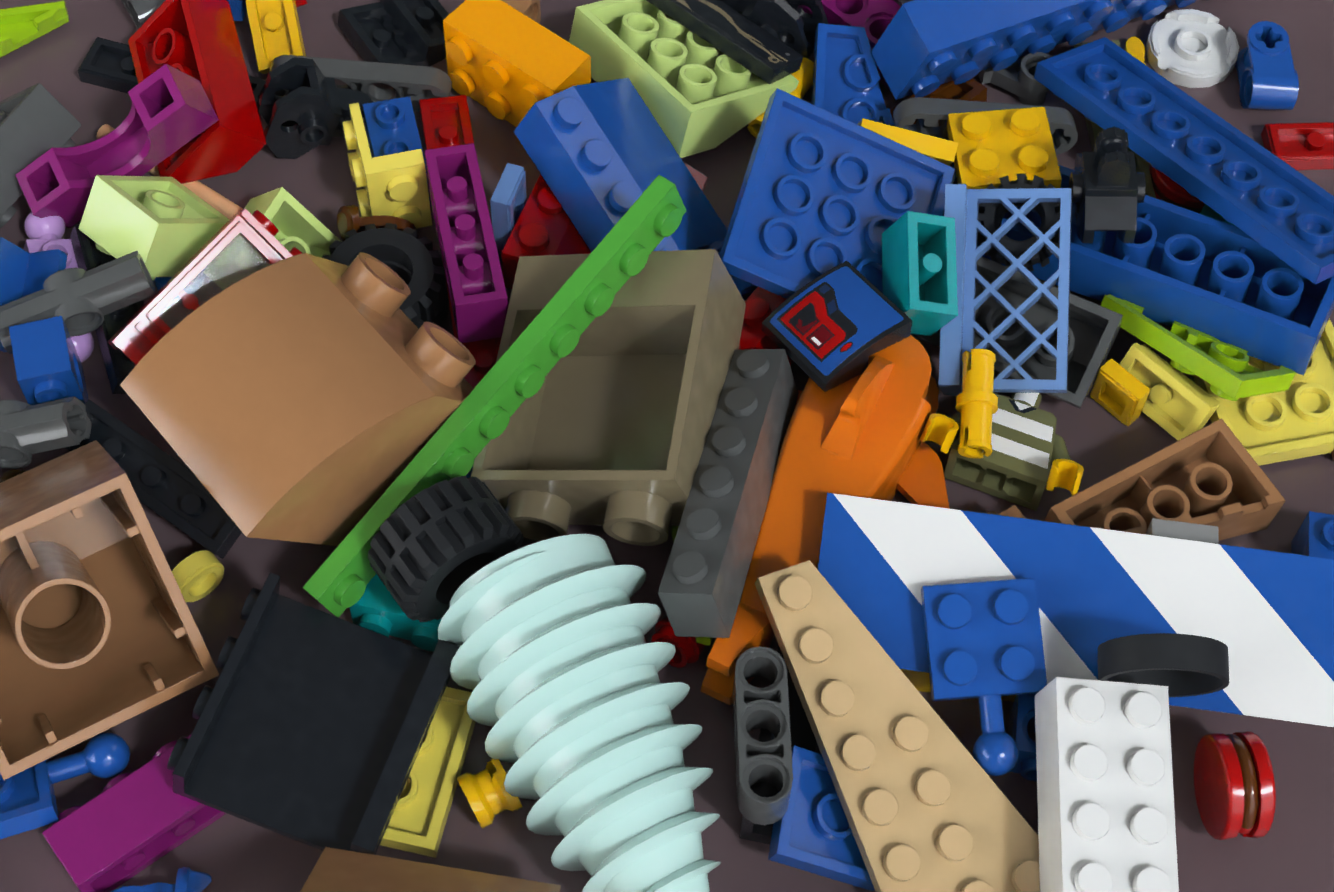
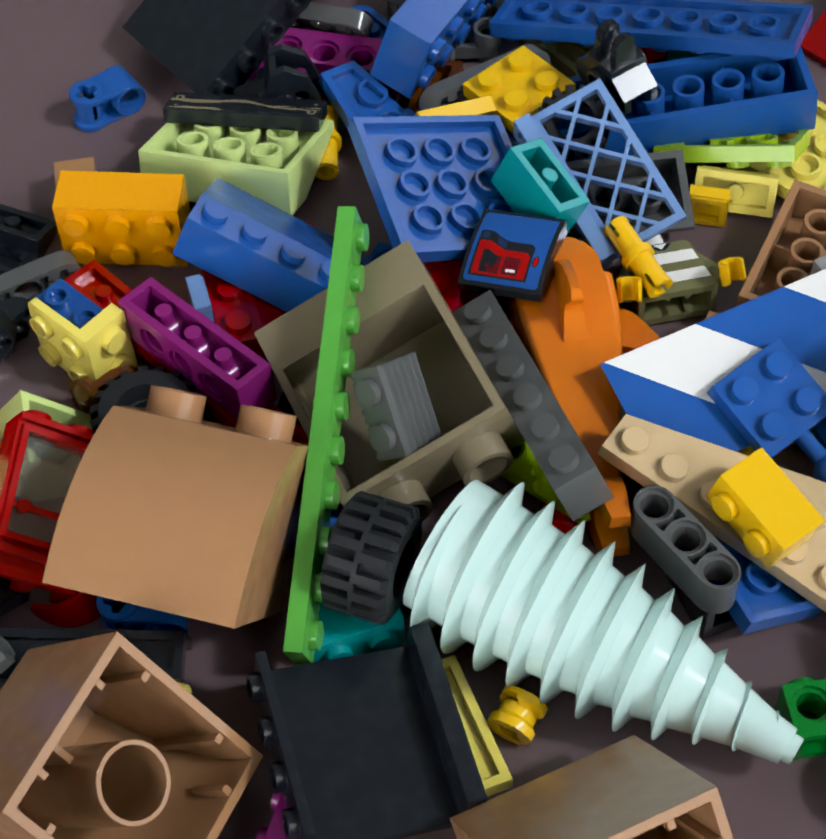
camera: 30 degrees left, 5 degrees down
(585, 412) = (396, 406): none -> dark grey brick
(867, 746) = (764, 508): none -> yellow brick

